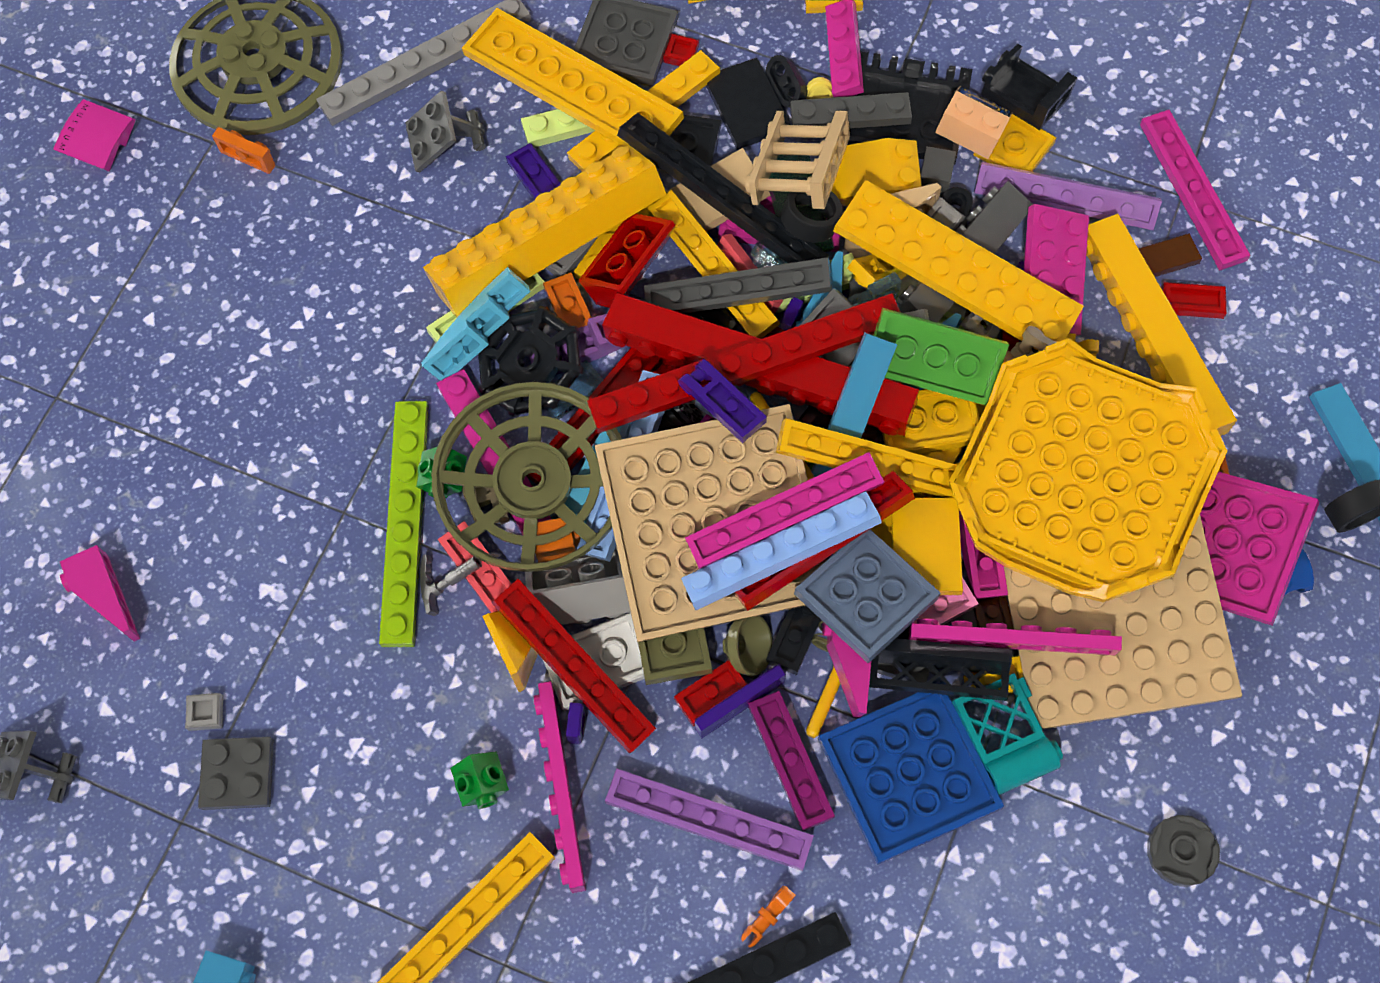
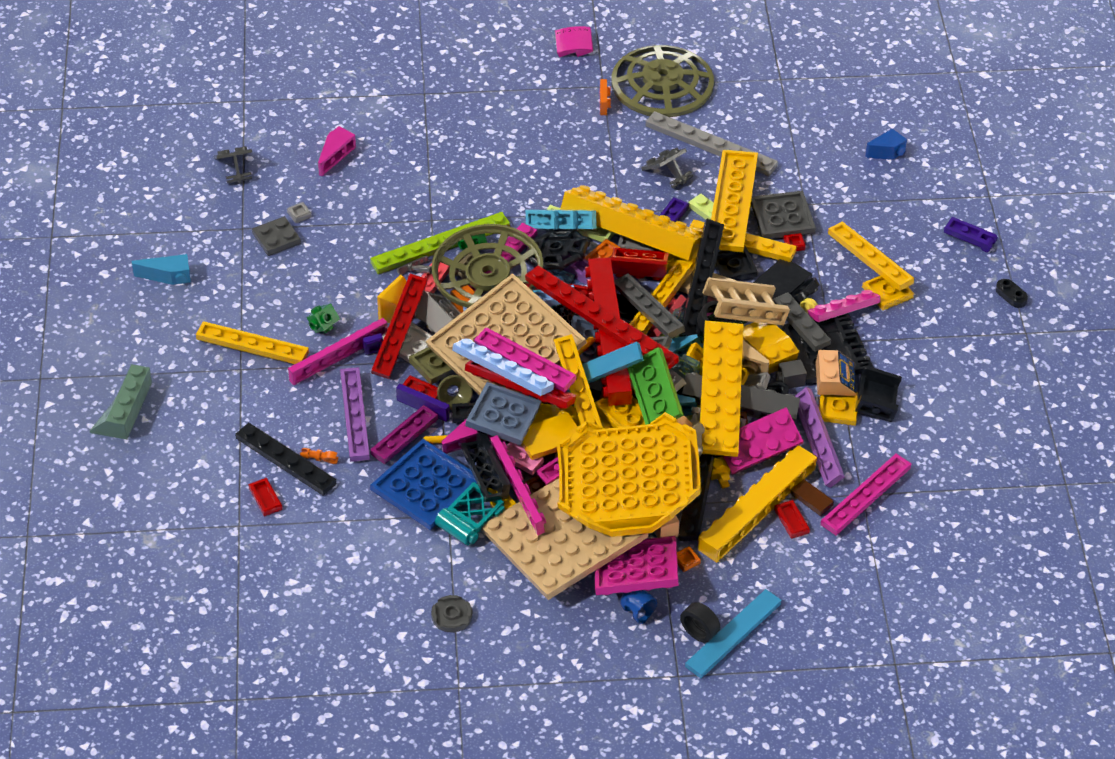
camera: 60 degrees right, 20 degrees down
(723, 401) = (566, 309): dark purple plate -> none

